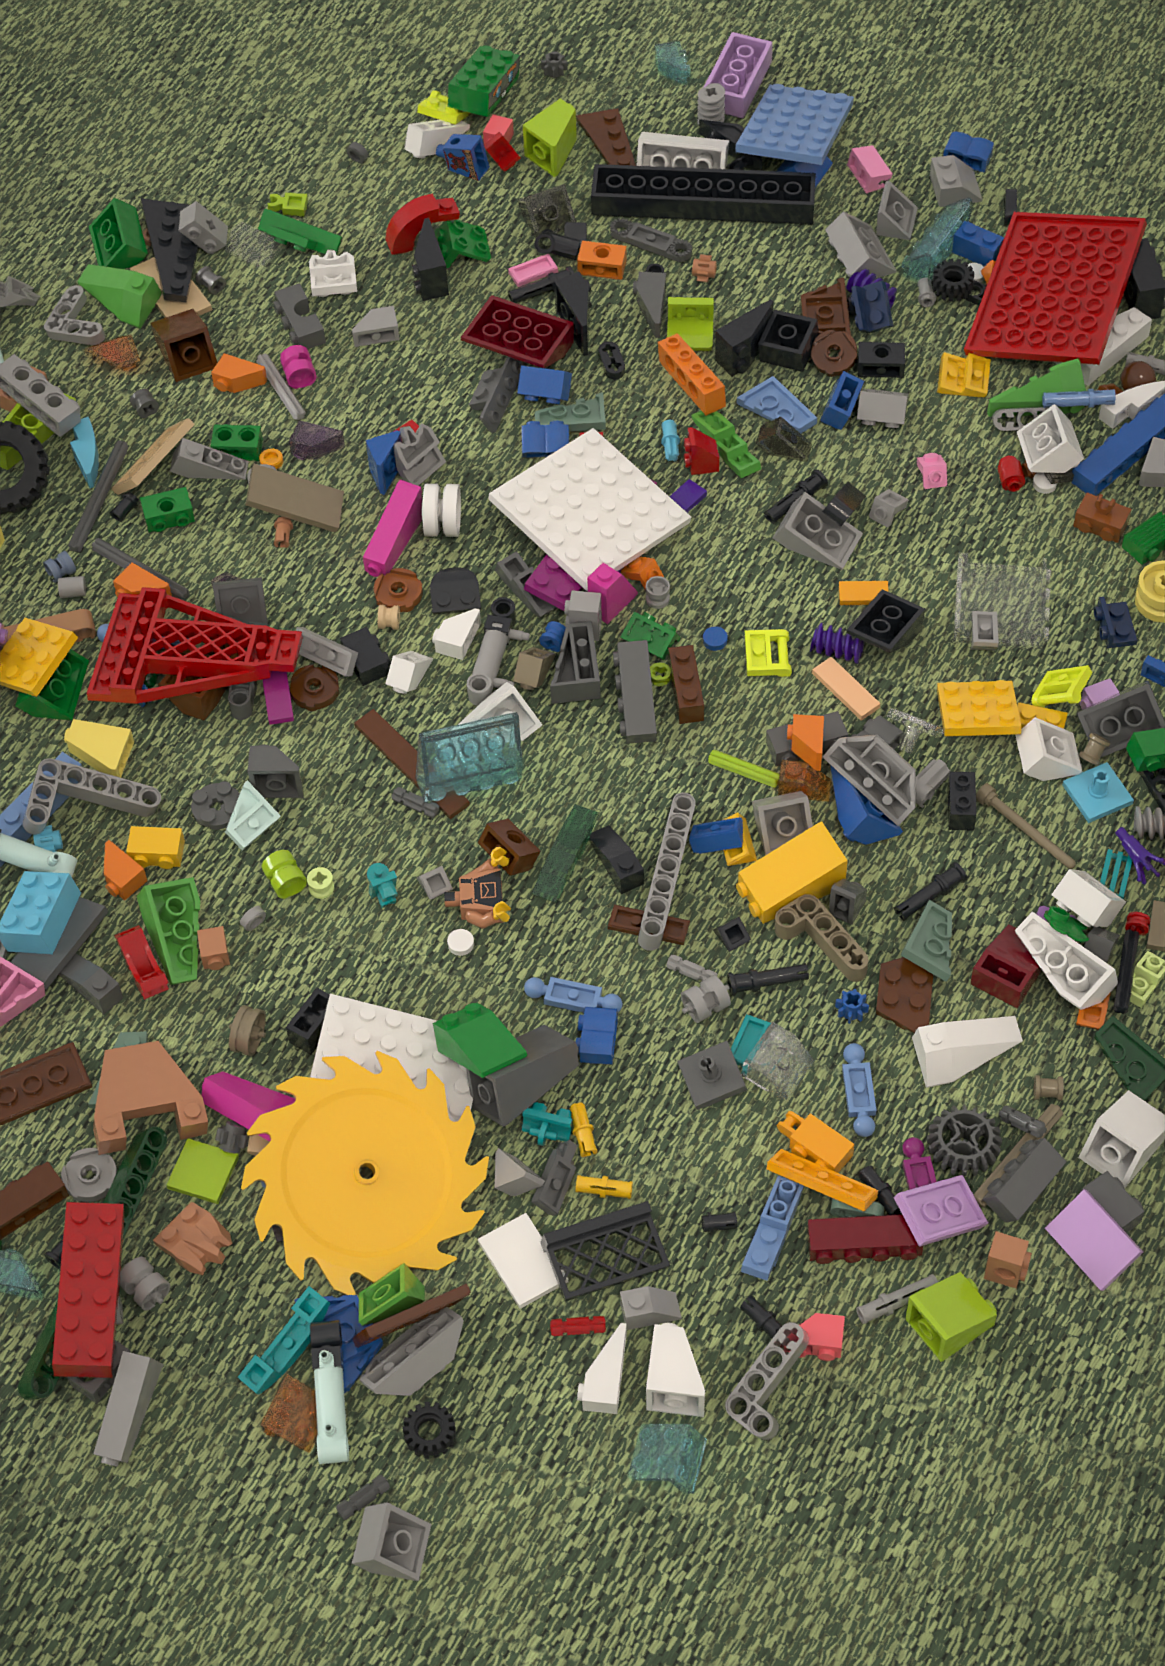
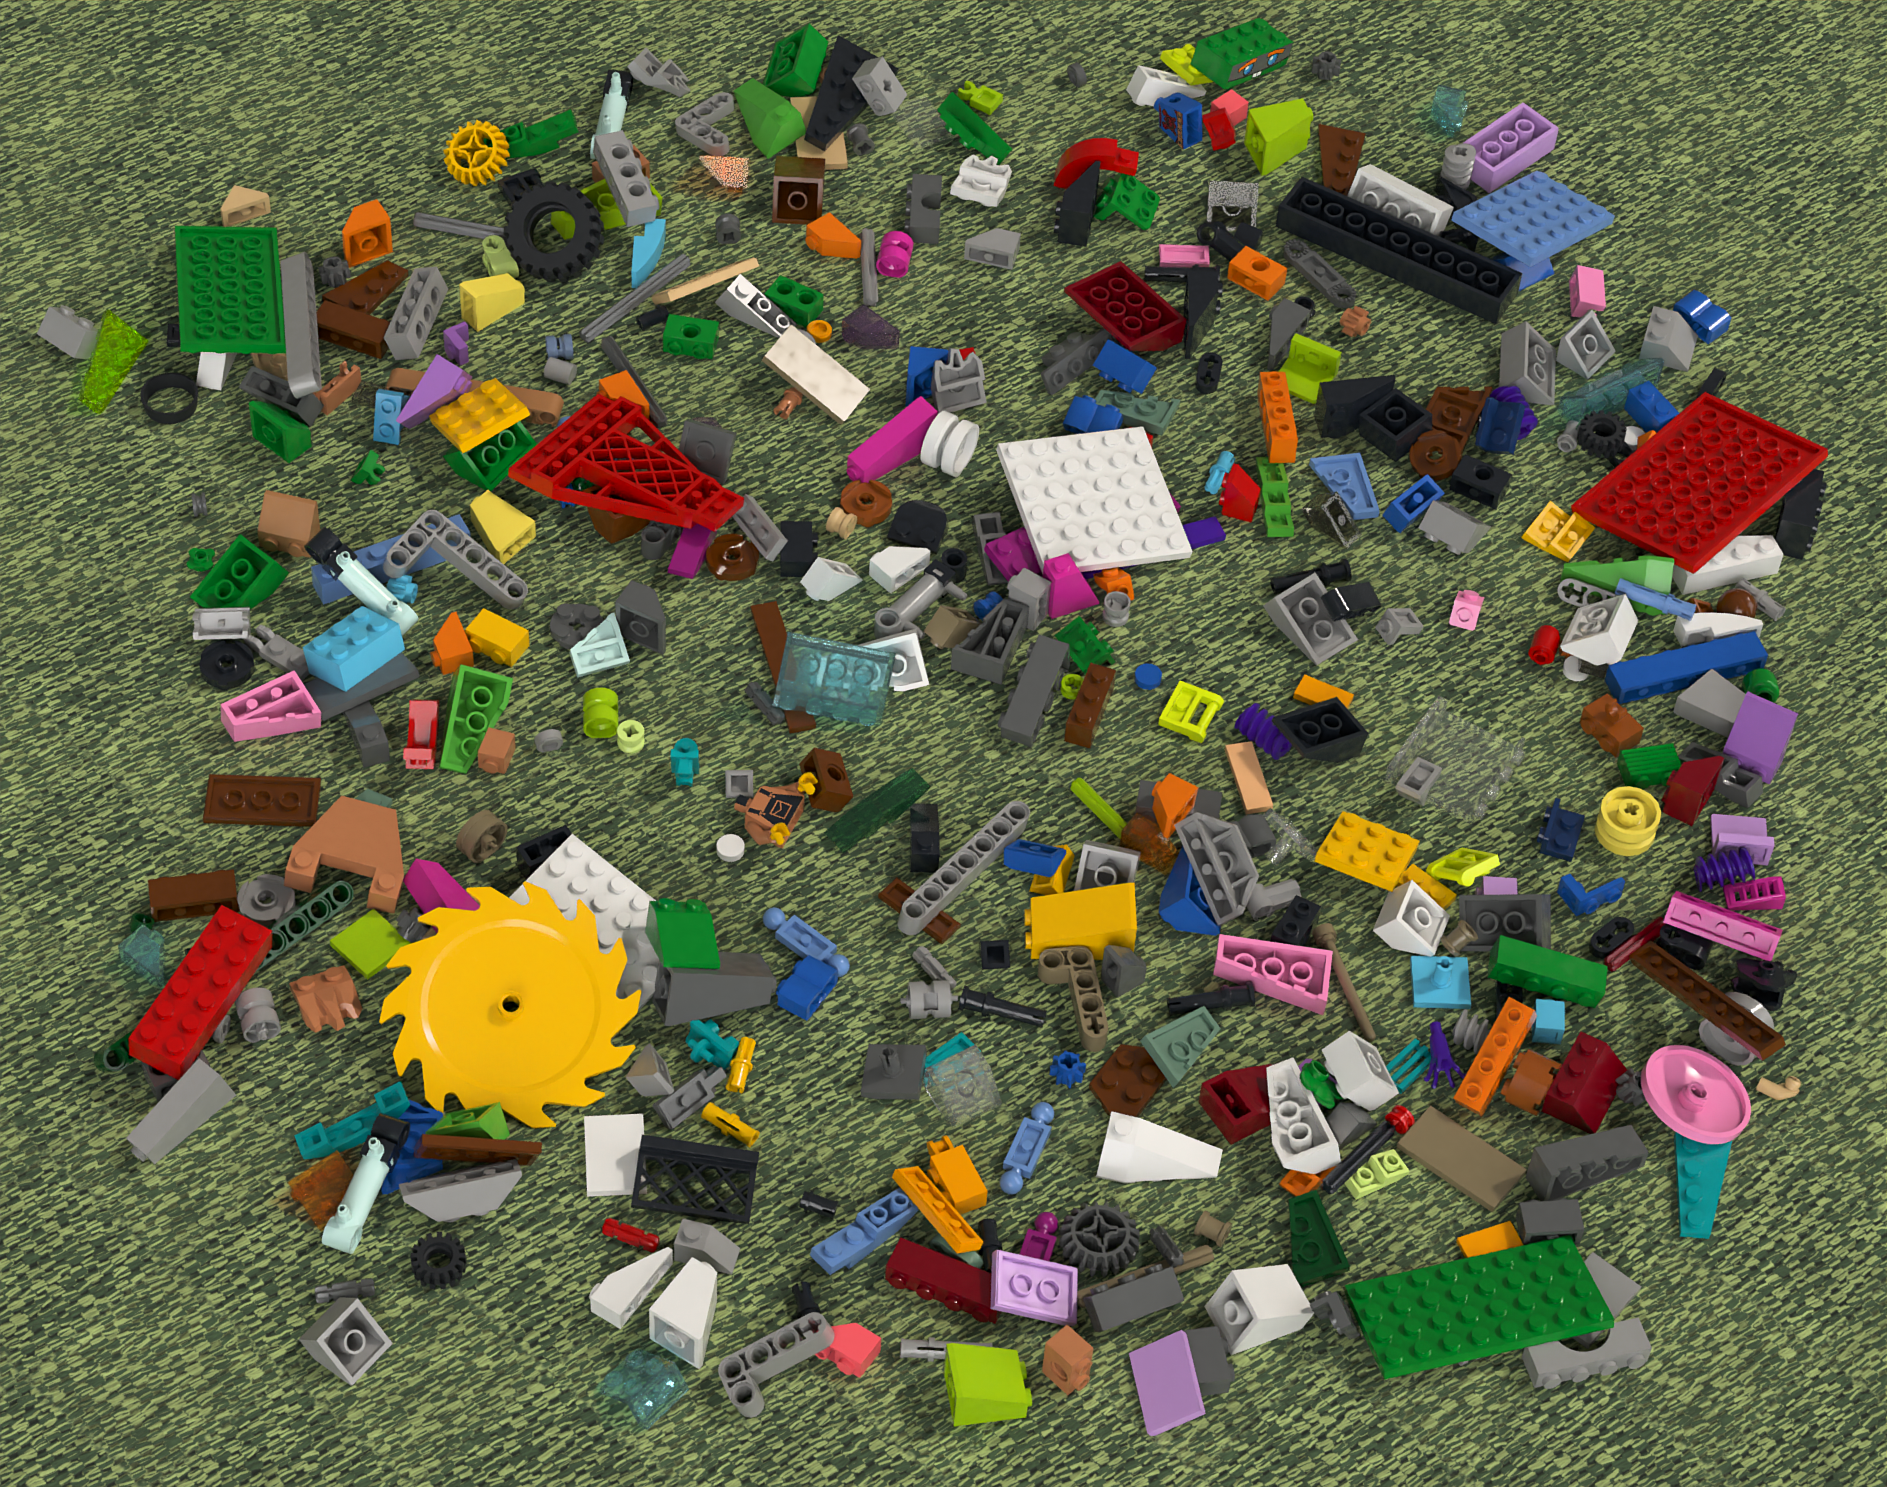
camera: 20 degrees right, 5 degrees down
(970, 842) = (1276, 969): none -> bright pink wedge

